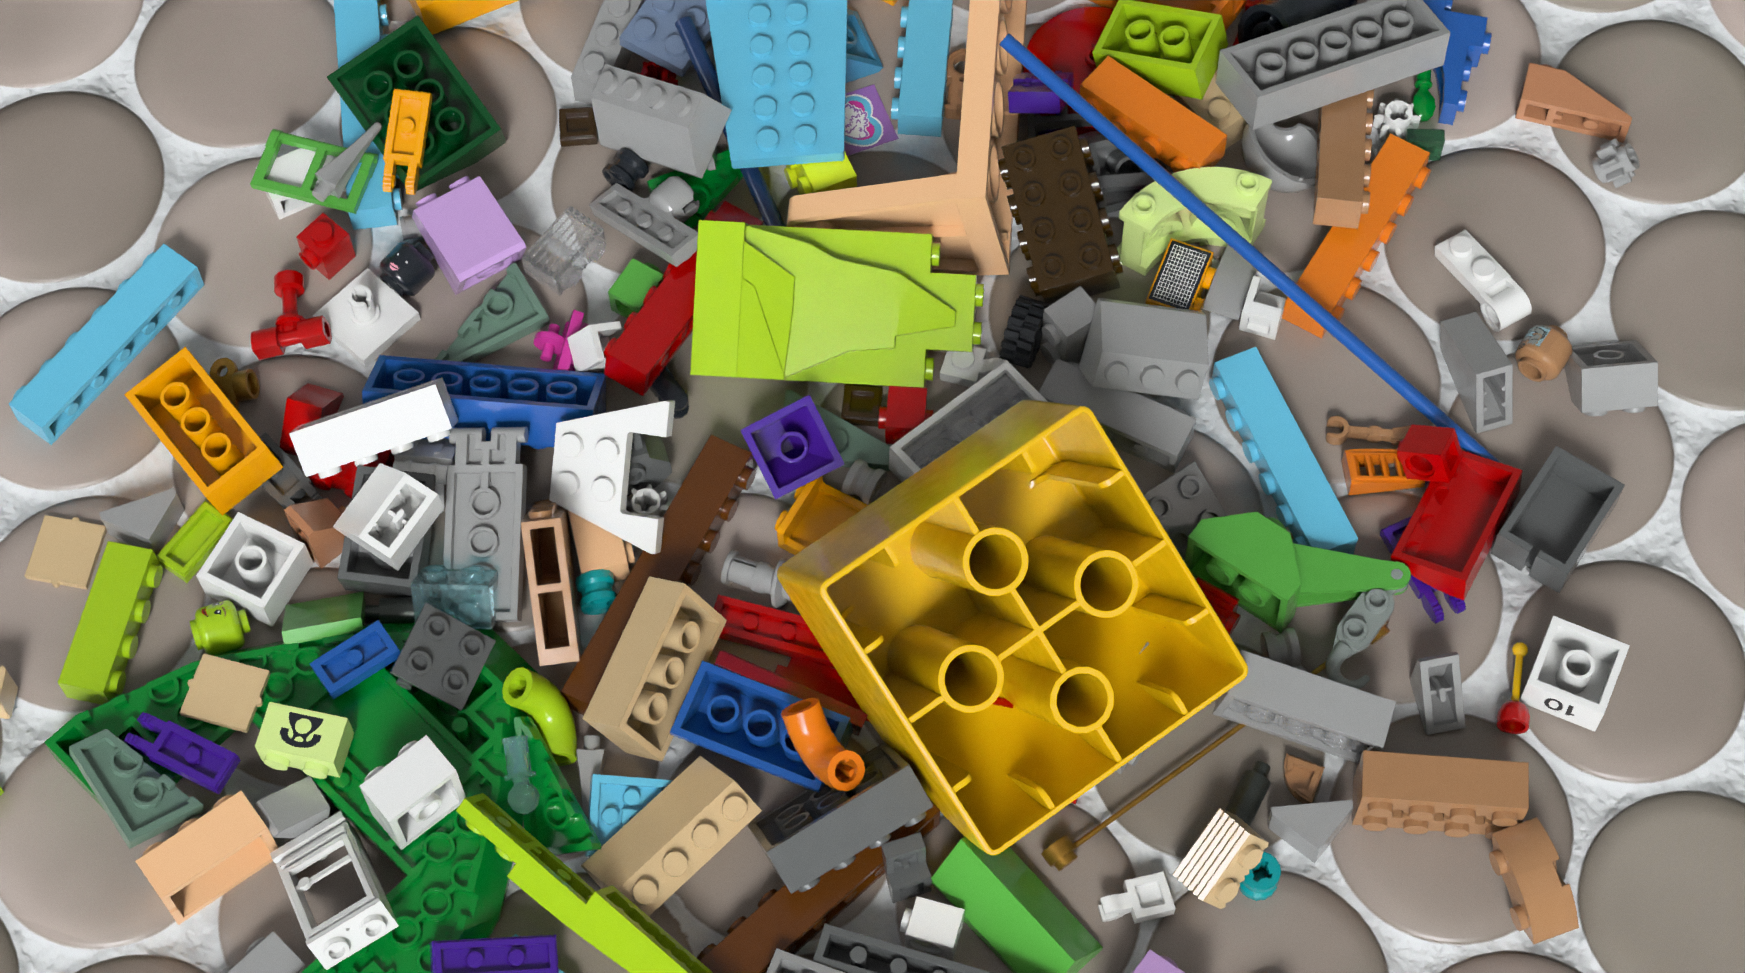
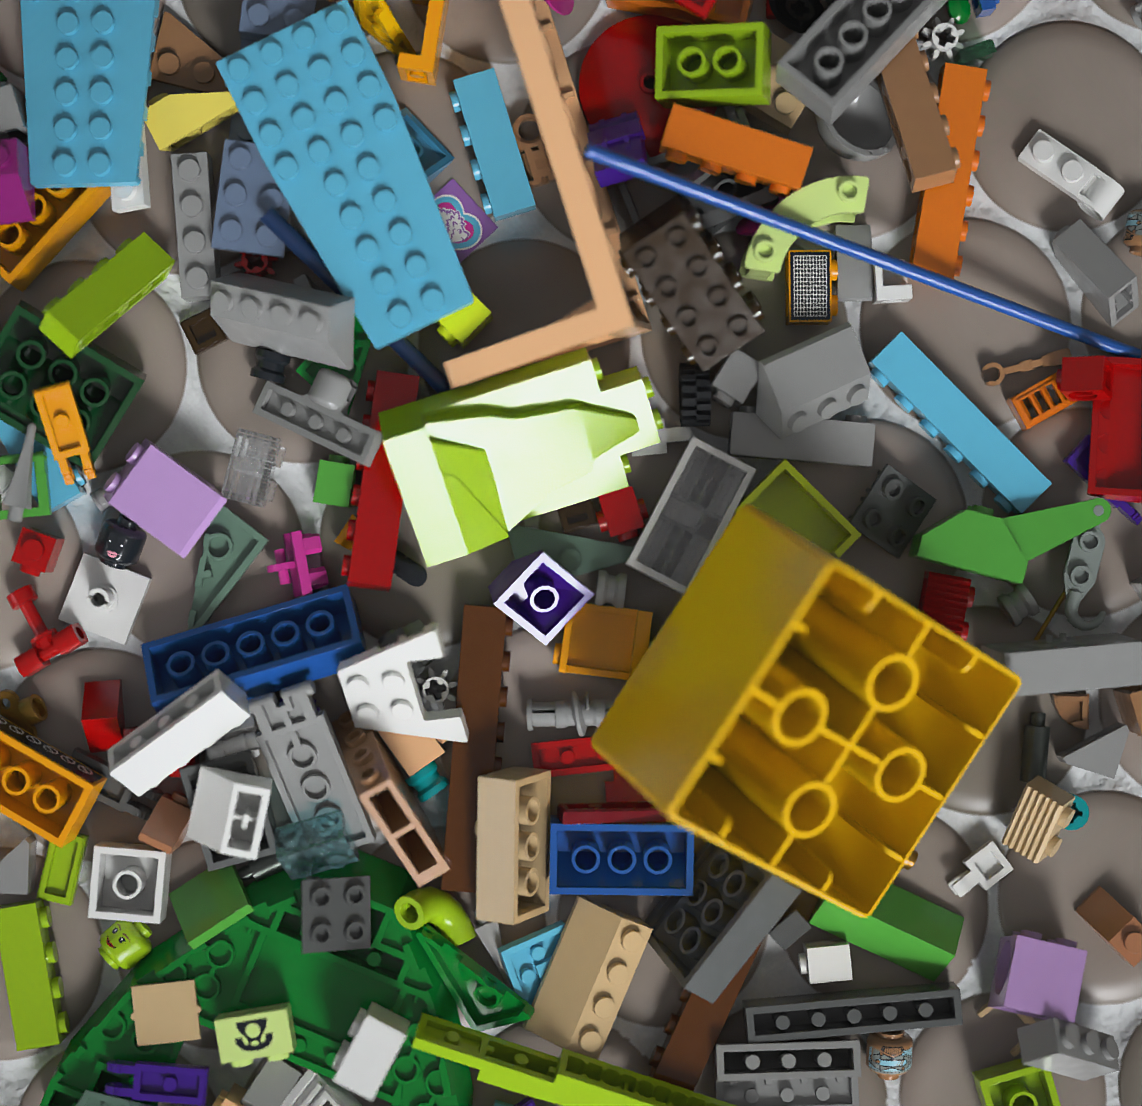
camera: 25 degrees left, 25 degrees up
(355, 659) = (263, 945): blue plate -> none
(503, 45) = (105, 294): none -> lime brick
(523, 796) = (453, 996): clear light blue pin -> none
(589, 344) = (325, 563): white panel -> none
(819, 746) = (687, 870): orange cylinder -> none

